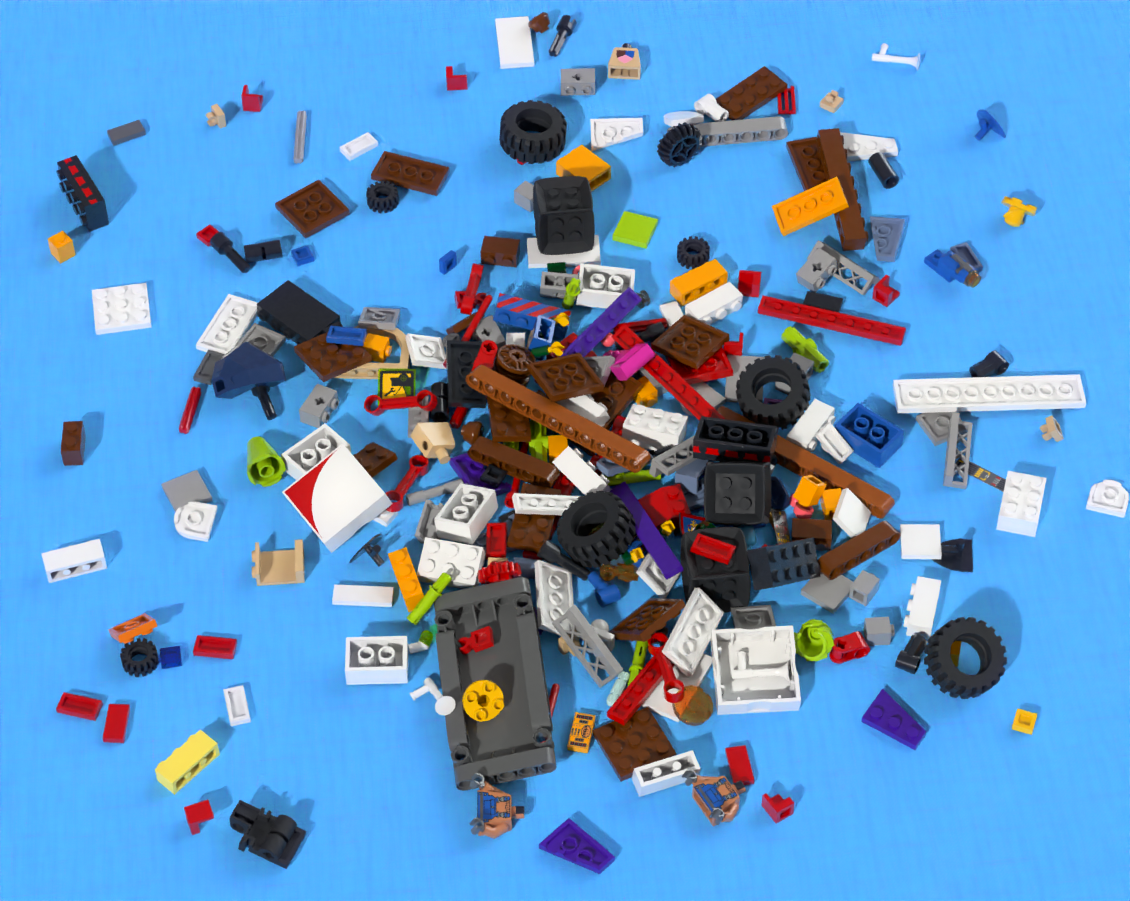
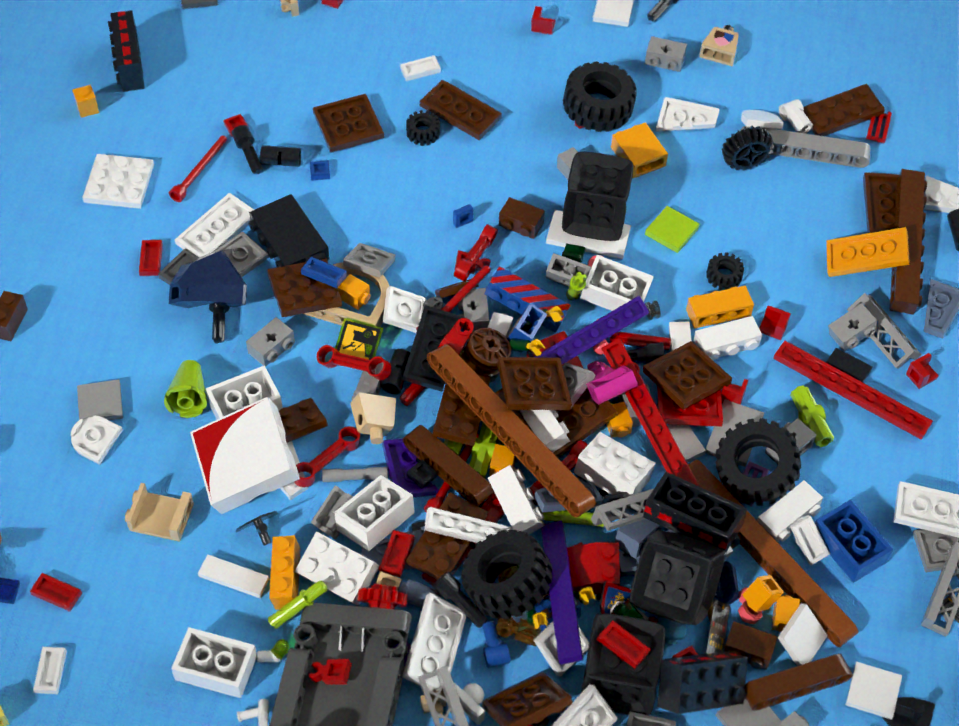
camera: 15 degrees right, 5 degrees up
(179, 365) = (150, 257): none -> red tile
(182, 304) = (178, 192): none -> red piece
(189, 410) = (140, 310): red axle -> none
(300, 137) = (365, 44): light grey axle -> none
(472, 431) = (419, 415): reddish brown cone -> none
(831, 102) = (927, 139): tan tile -> none

